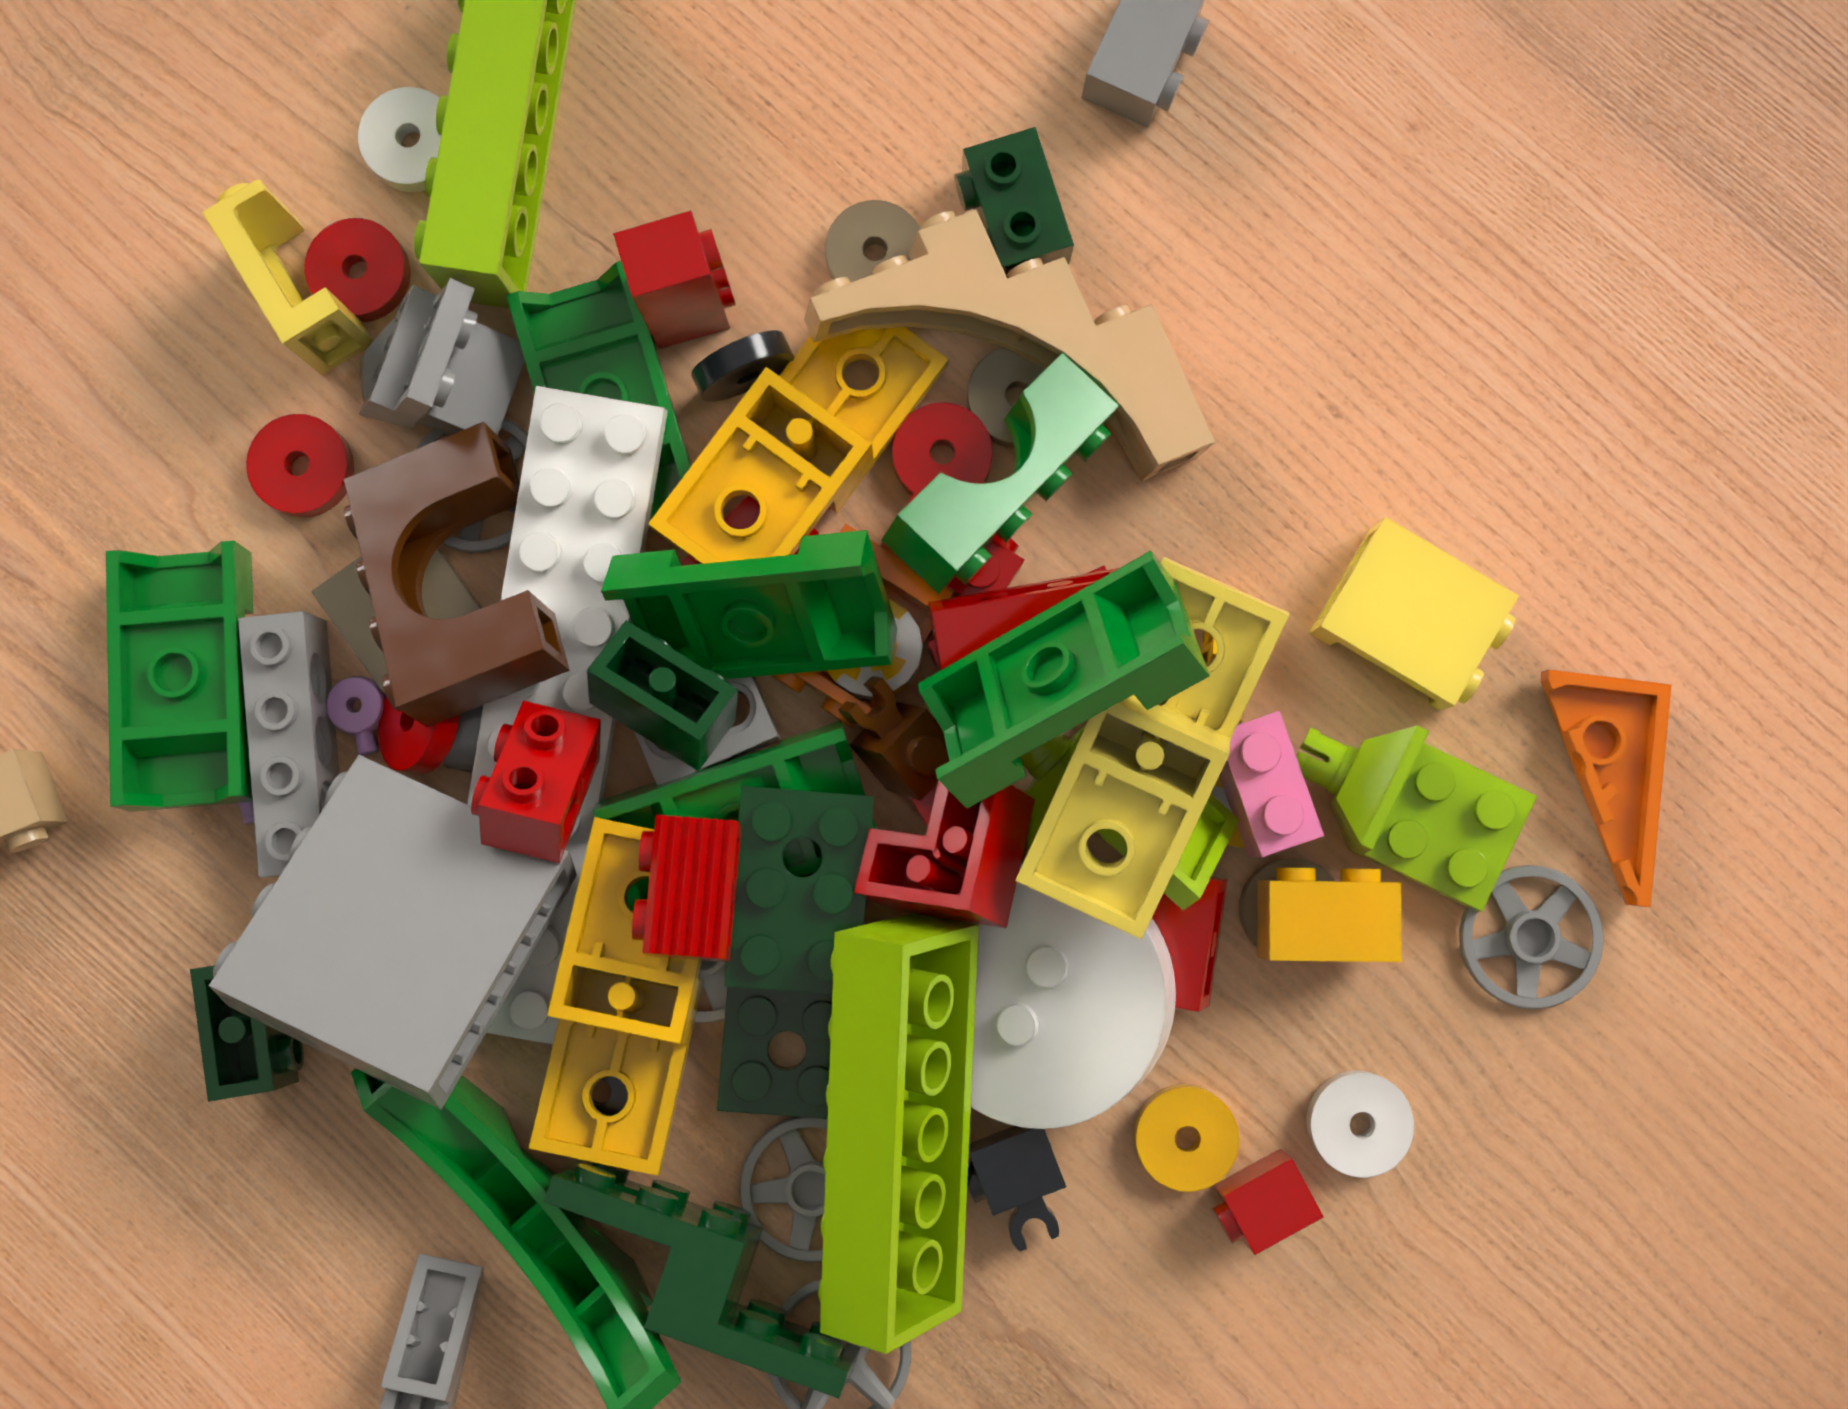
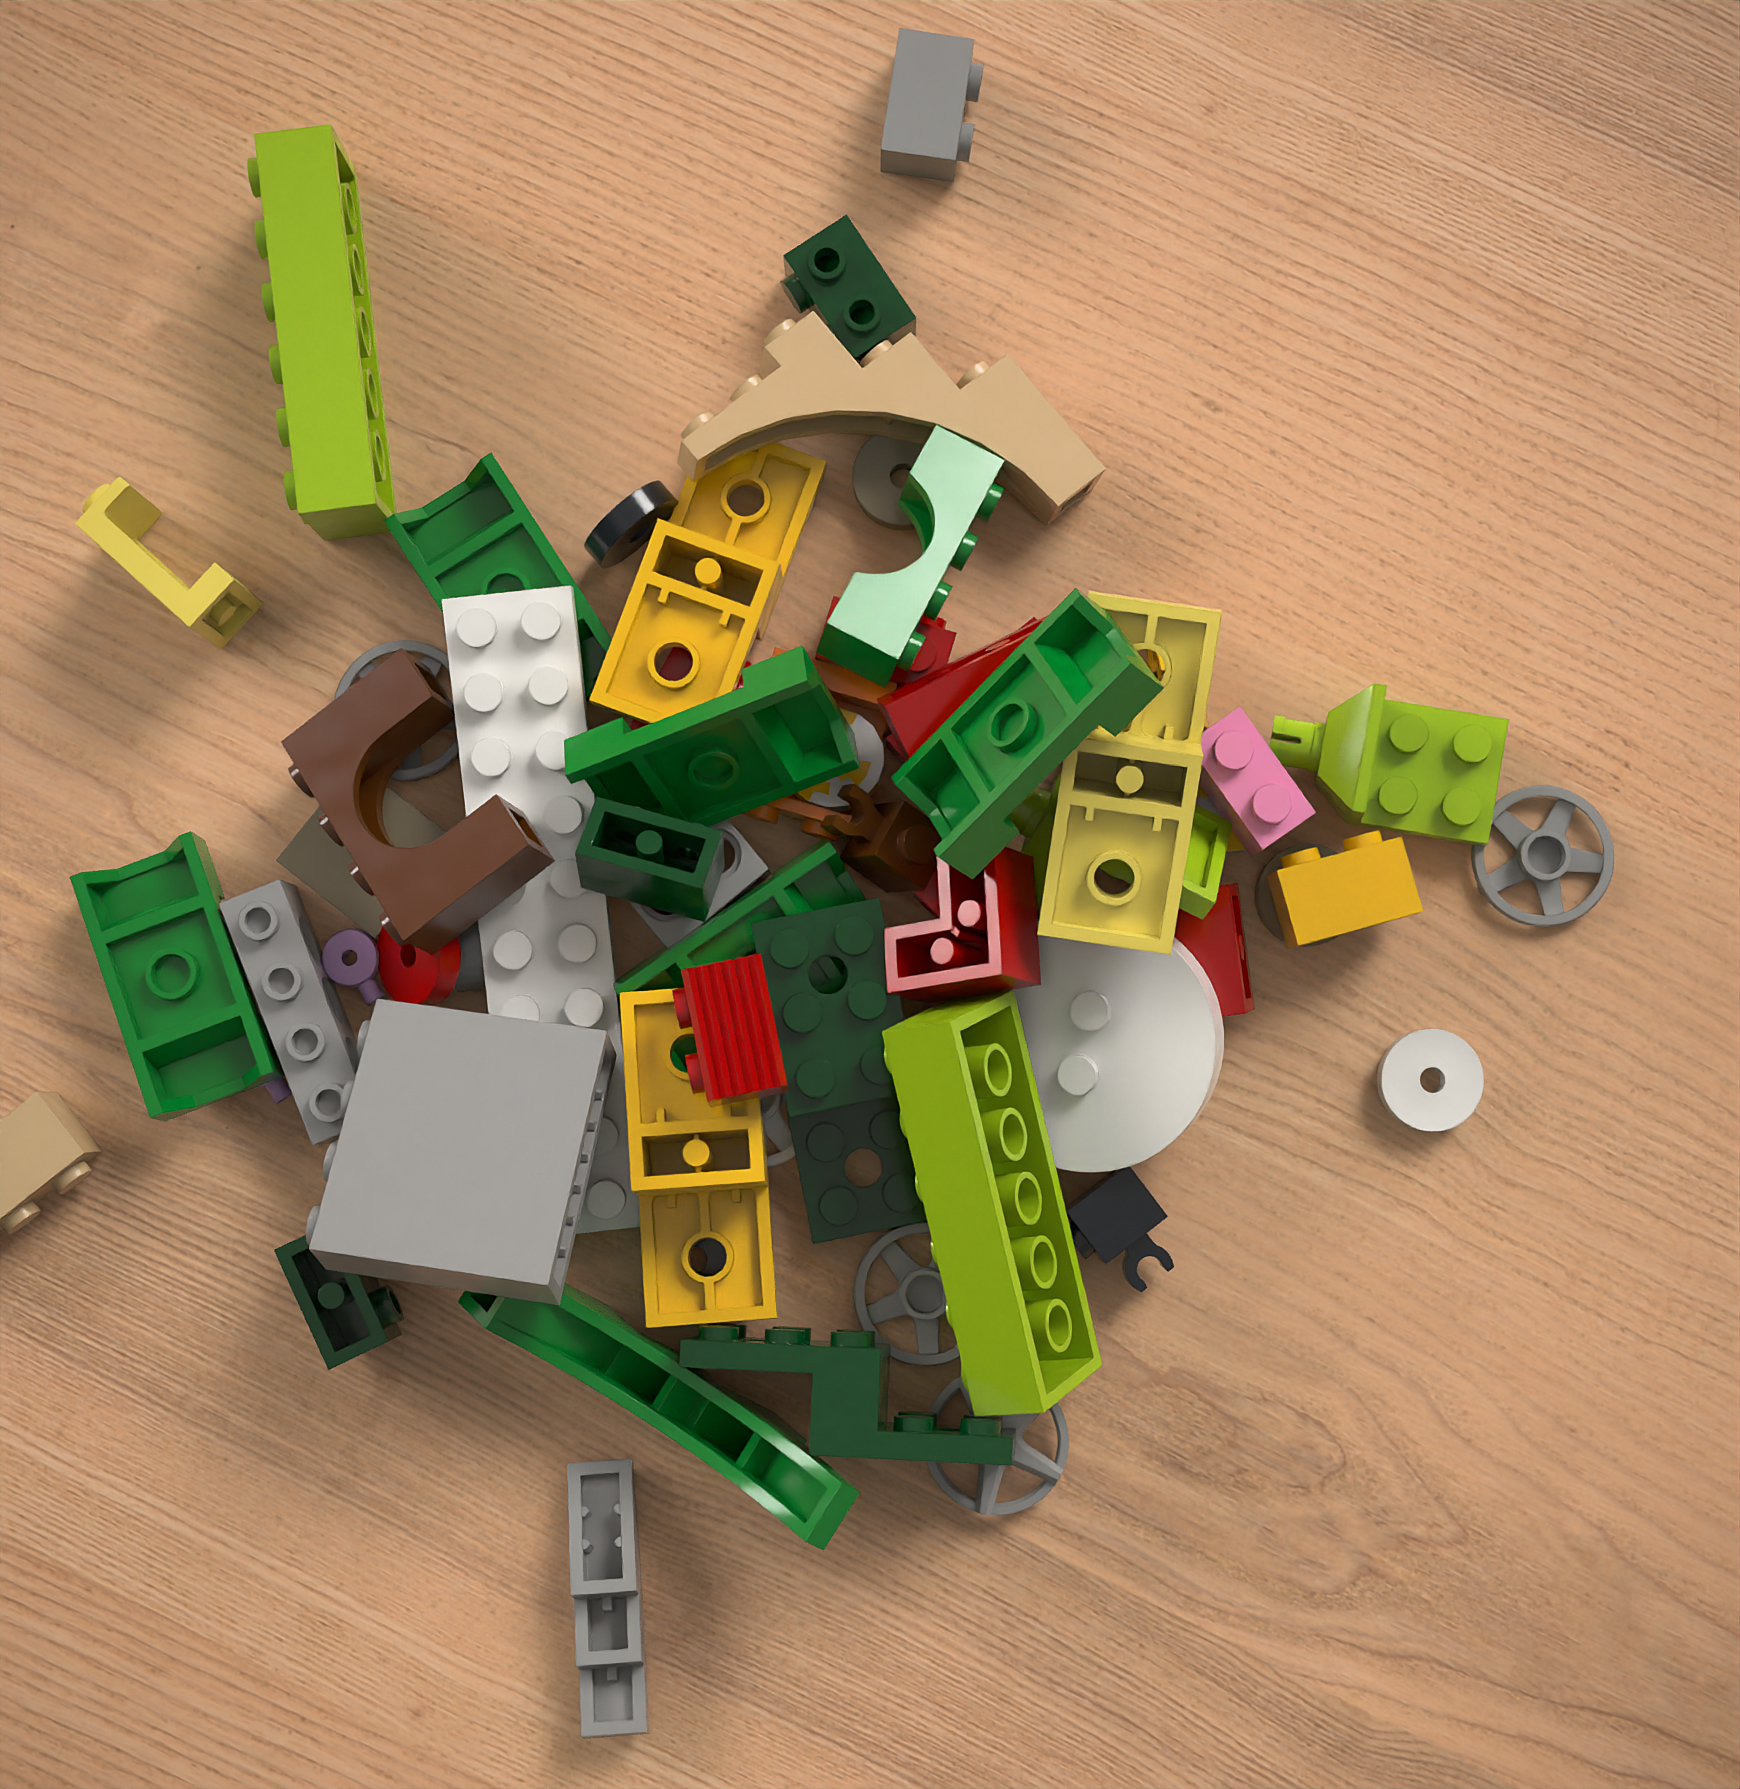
camera: 15 degrees left, 0 degrees up
(277, 448) = (199, 736): red piece -> none
(356, 241) = (224, 508): red piece -> none
(385, 126) = (212, 393): white piece -> none
(439, 365) = (336, 606): light grey piece -> none
(537, 781) = (558, 972): red brick -> none
(676, 278) = (548, 458): red brick -> none
(863, 226) = (705, 356): dark tan piece -> none
(941, 425) = (841, 526): red piece -> none
(1204, 1161) = (1298, 1141): yellow piece -> none
(1265, 1202) = (1361, 1179): red brick -> none
(1417, 613) = (1345, 578): light yellow panel -> none
(1618, 753) = (1573, 653): orange wing -> none

